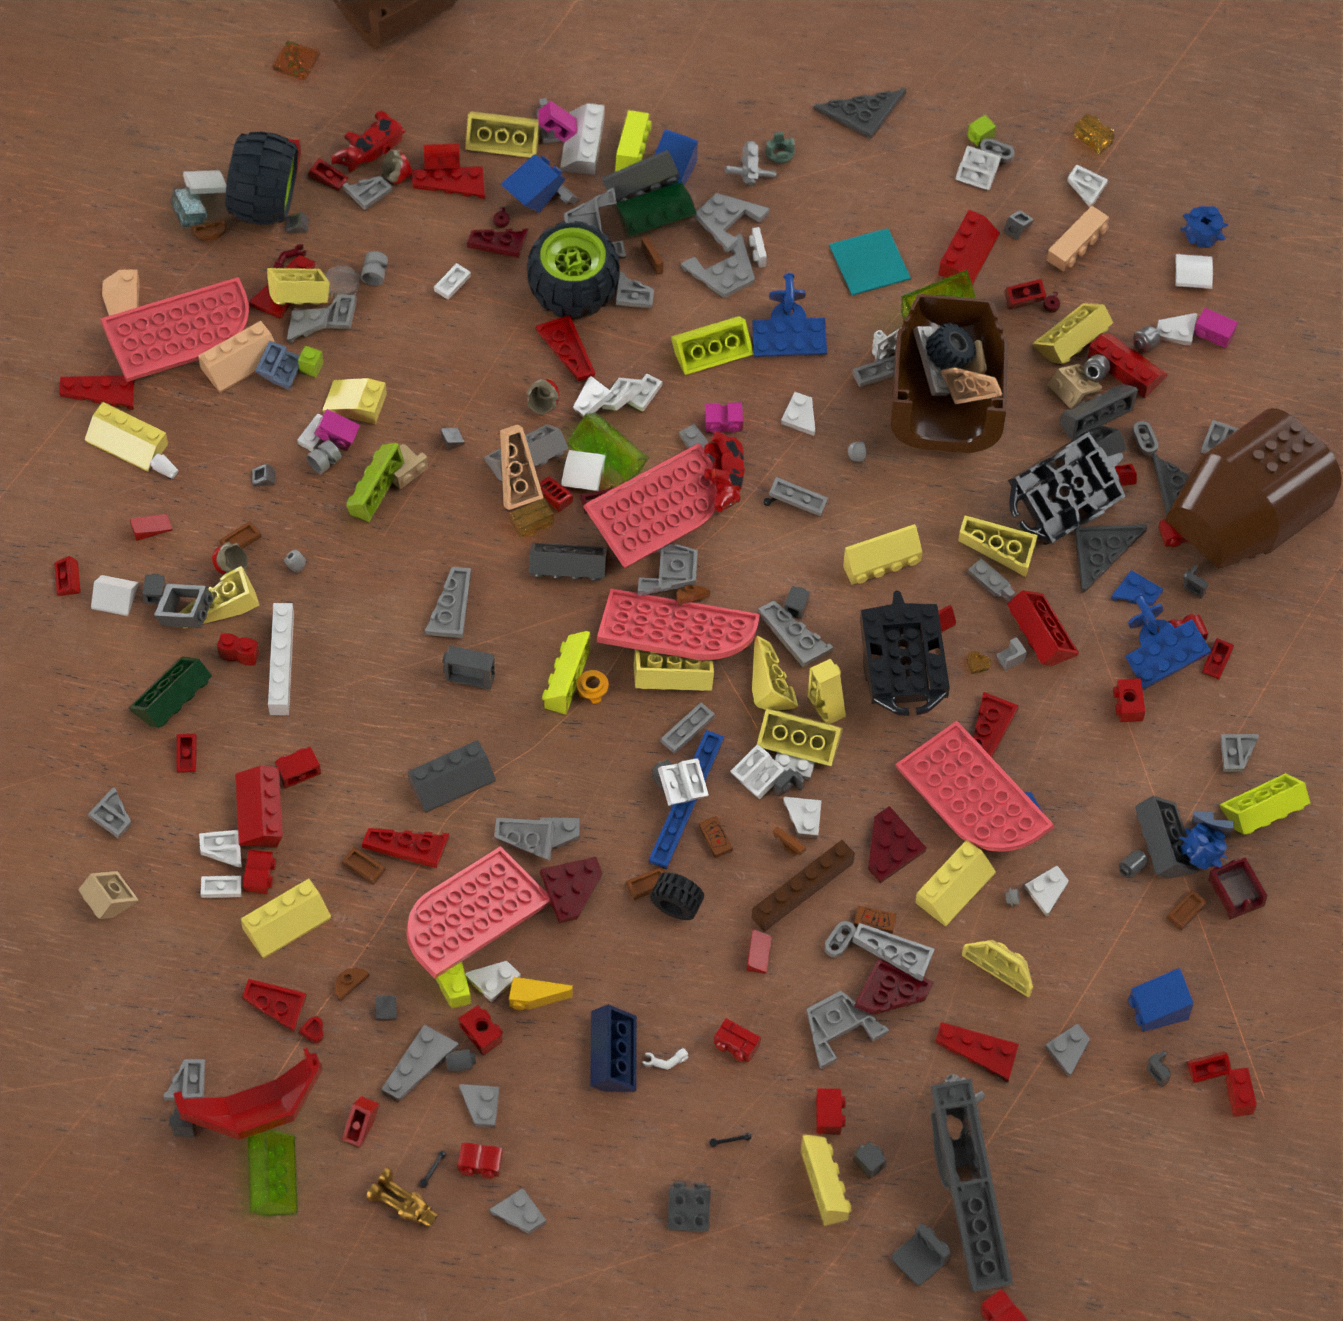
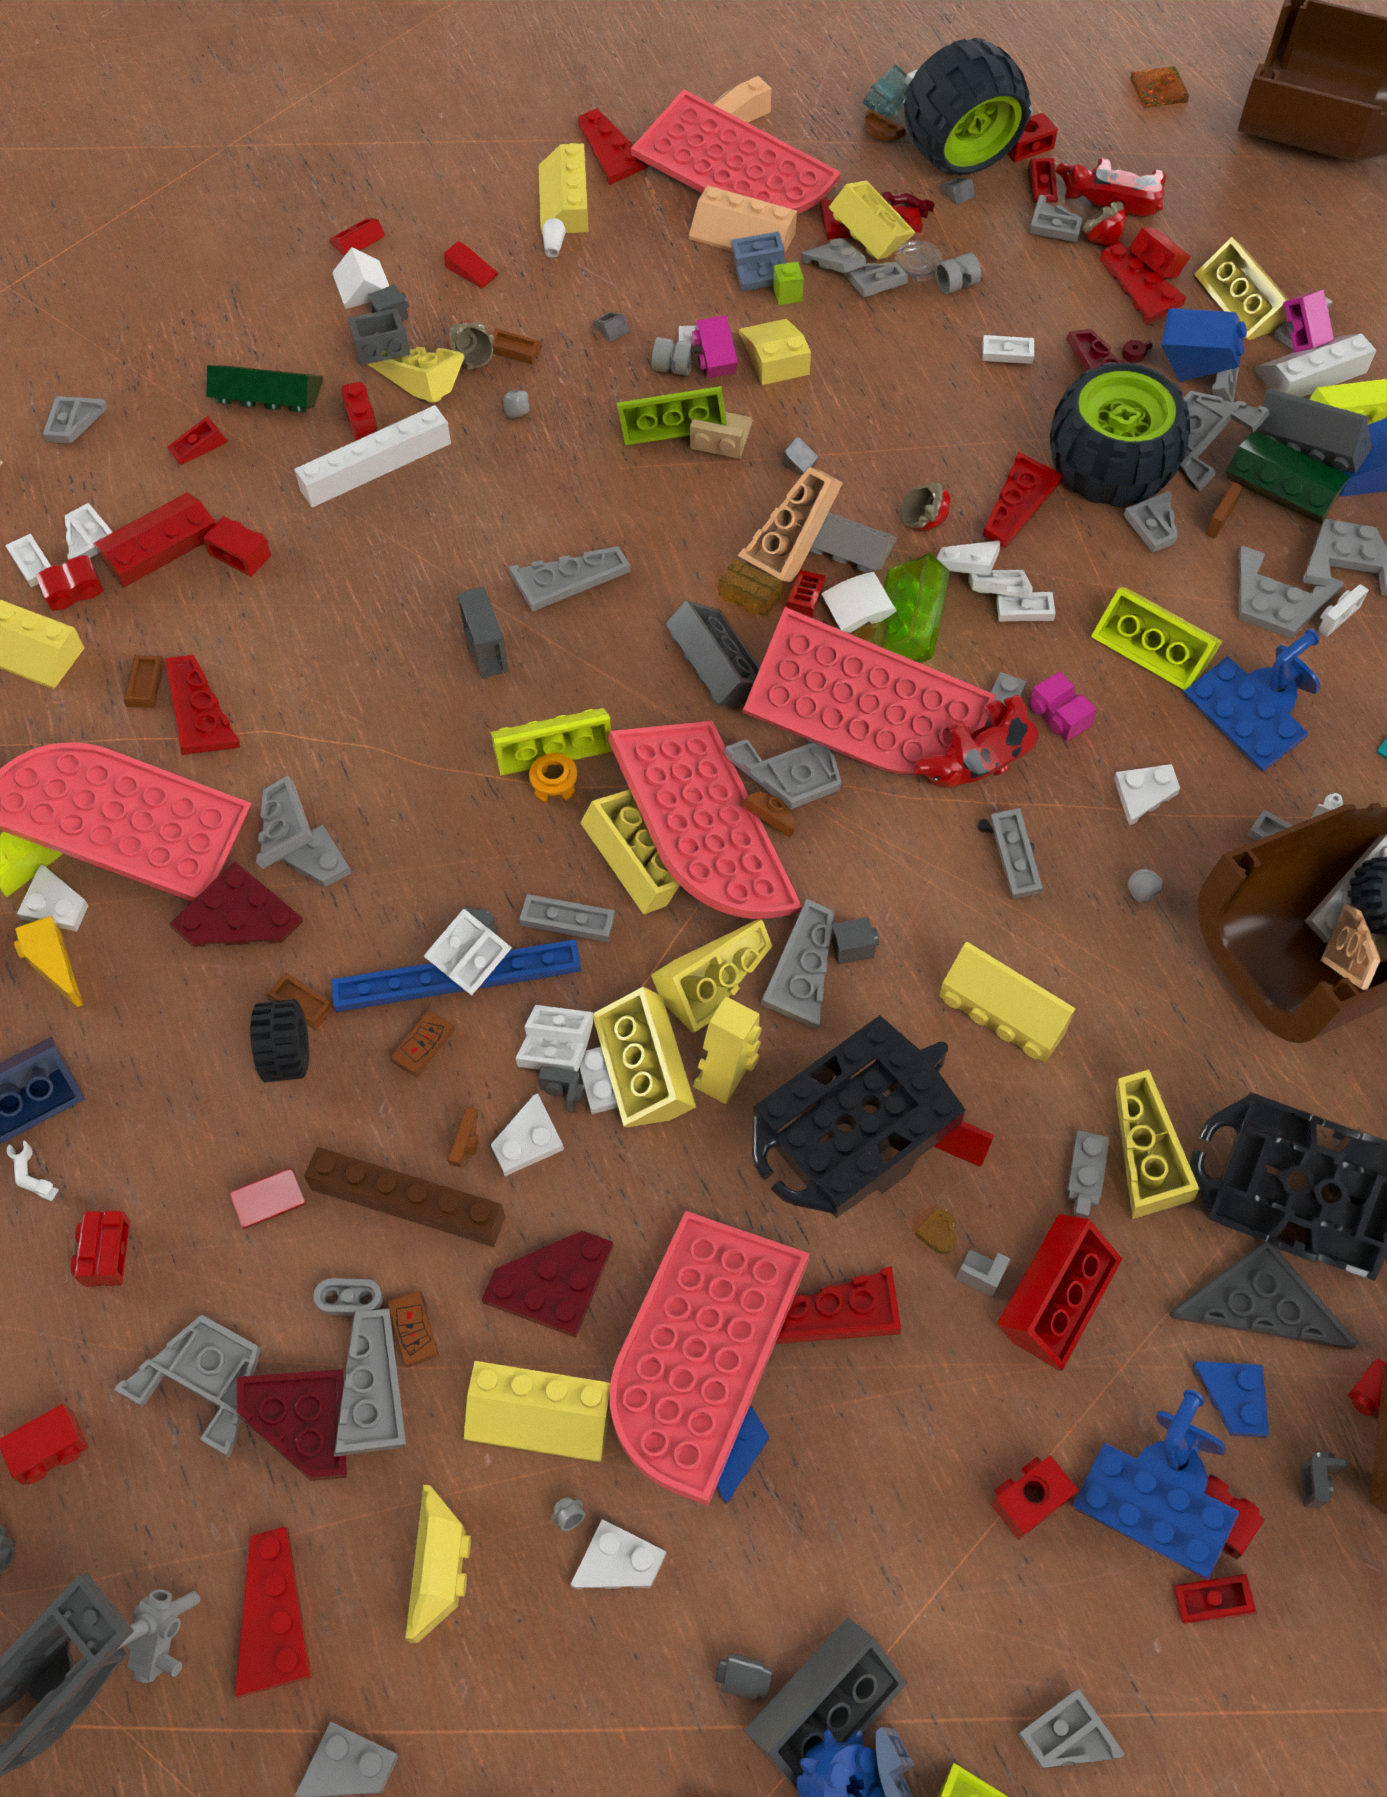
camera: 60 degrees right, 0 degrees up
(451, 776) = (322, 699): dark grey slope -> none

